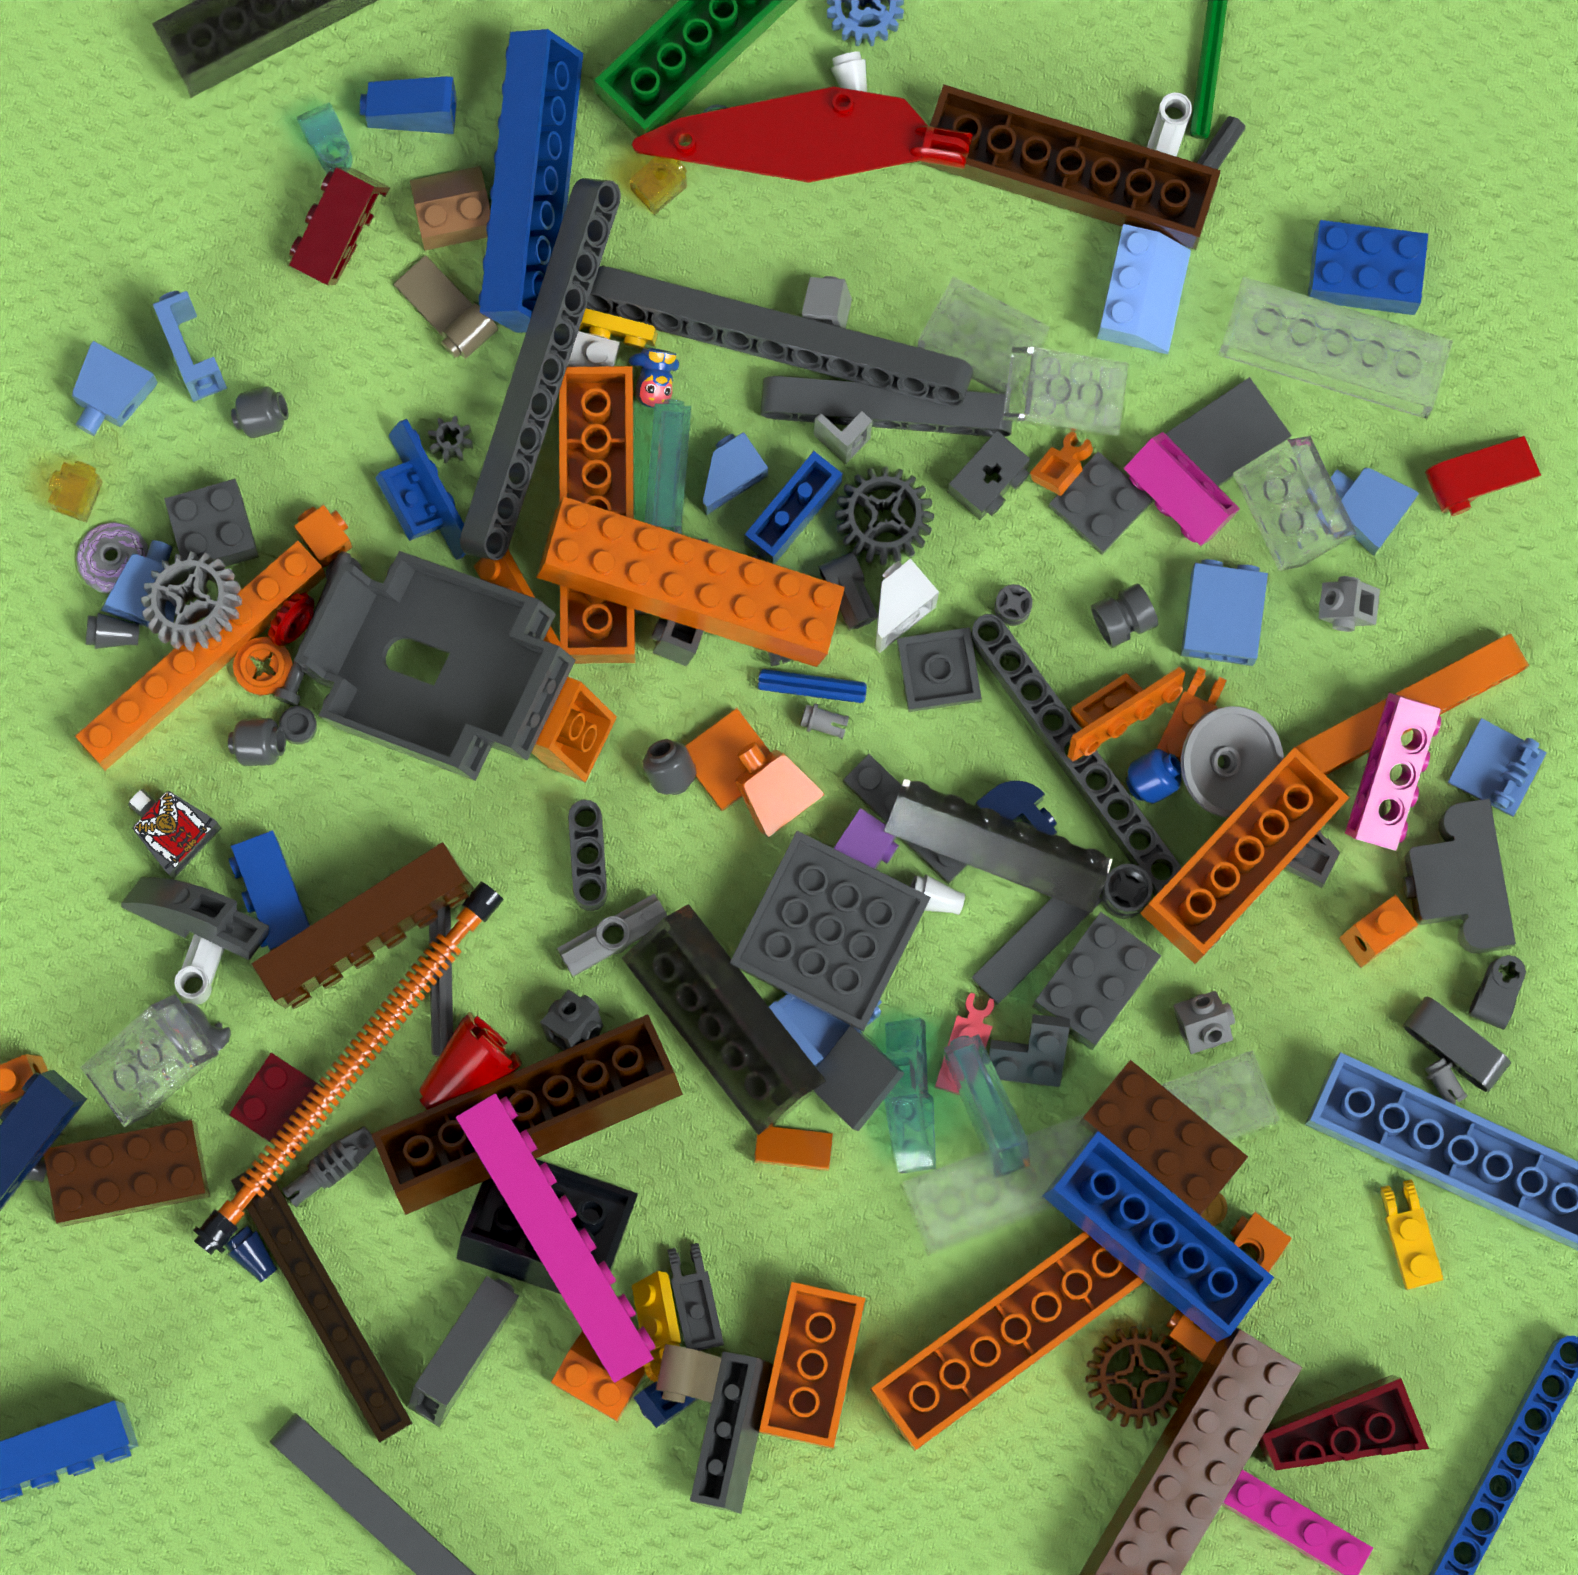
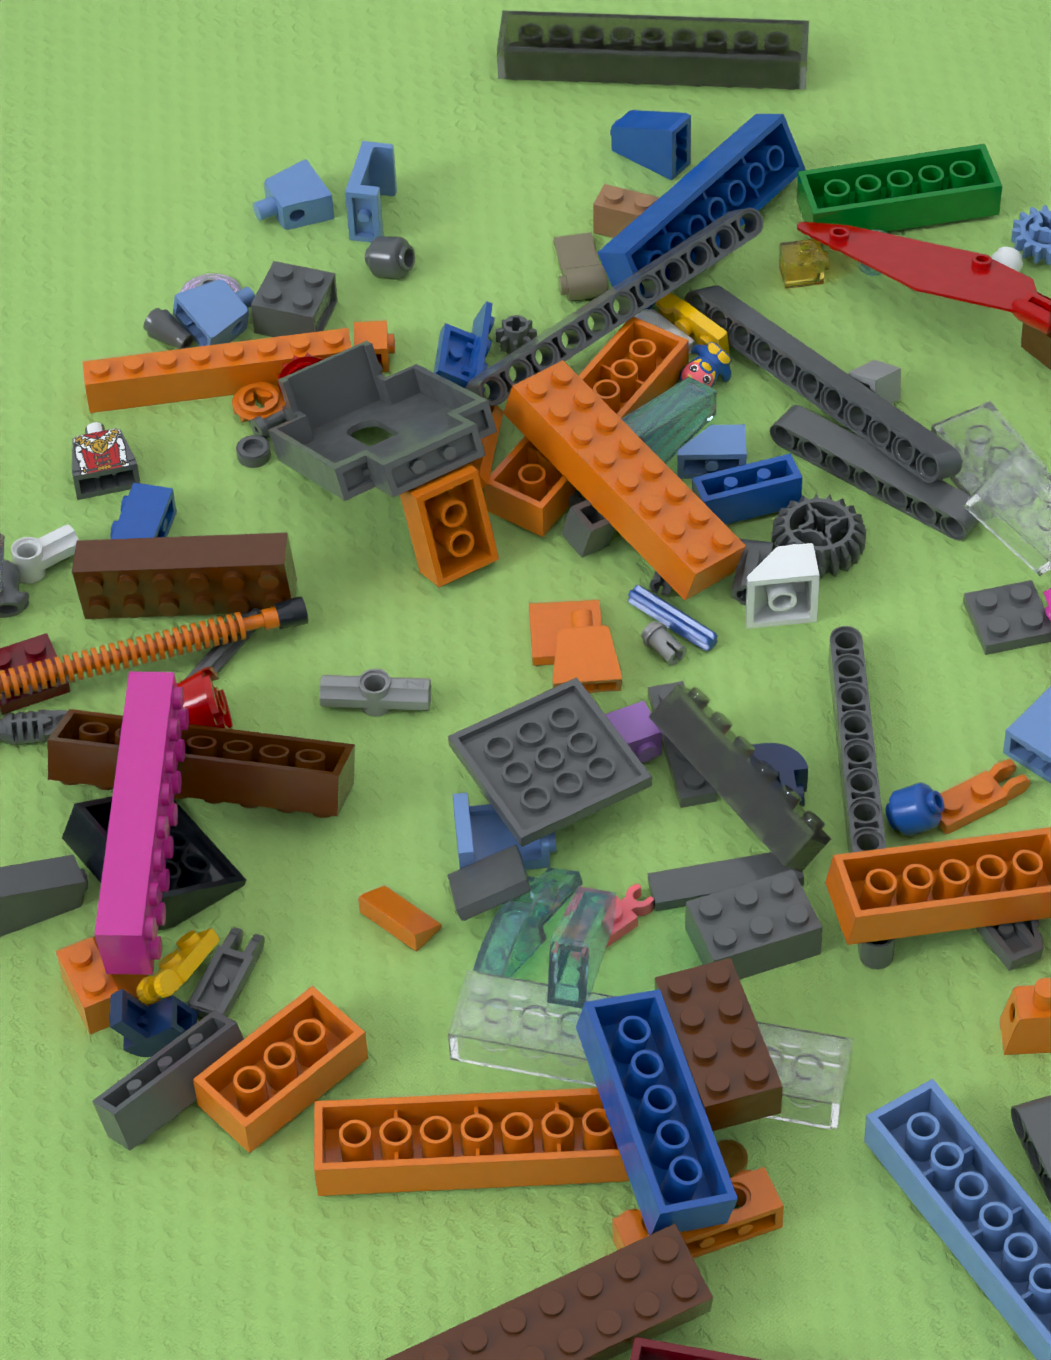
camera: 40 degrees right, 30 degrees down
(74, 490) = (217, 241): clear yellow brick -> none
(196, 574) = (236, 315): light grey gear -> none
(197, 910) = (70, 507): dark grey slope -> none
(257, 742) = (212, 440): dark grey head -> none
(326, 135) = (575, 137): clear light blue piece -> none
(336, 224) = (540, 177): dark red wedge -> none
(572, 1021) = (293, 719): dark grey brick -> none
(587, 837) = (400, 630): dark grey beam -> none
(669, 767) = (512, 604): dark grey head -> none
(687, 1374) = (170, 993): dark tan door -> none
(723, 1019) = (413, 782): clear smoke brick -> none
(844, 443) = (826, 463): light grey panel -> none
(939, 669) = (785, 655): dark grey plate -> none
(942, 897) = (662, 803): white cone -> none
(995, 456) = (926, 550): dark grey brick -> none
(1015, 595) = (882, 643): flat silver wheel -> none
(1040, 1059) = (656, 954): dark grey plate -> none
(1061, 468) = (992, 574): orange plate -> none
(1117, 707) = (920, 746): orange bracket -> none
(1124, 615) = (972, 690): dark grey wheel -> none
(1126, 891) = (816, 870): dark grey wheel -> none
(1168, 1375) = (554, 1230): reddish brown gear -> none
(1204, 1021) = (816, 1013): light grey brick -> none
(1249, 754) = (986, 805): light grey dish -> none
(1411, 1239) = (899, 1287): yellow hinge -> none
(1444, 1079) = (1021, 1167): light grey pin -> none

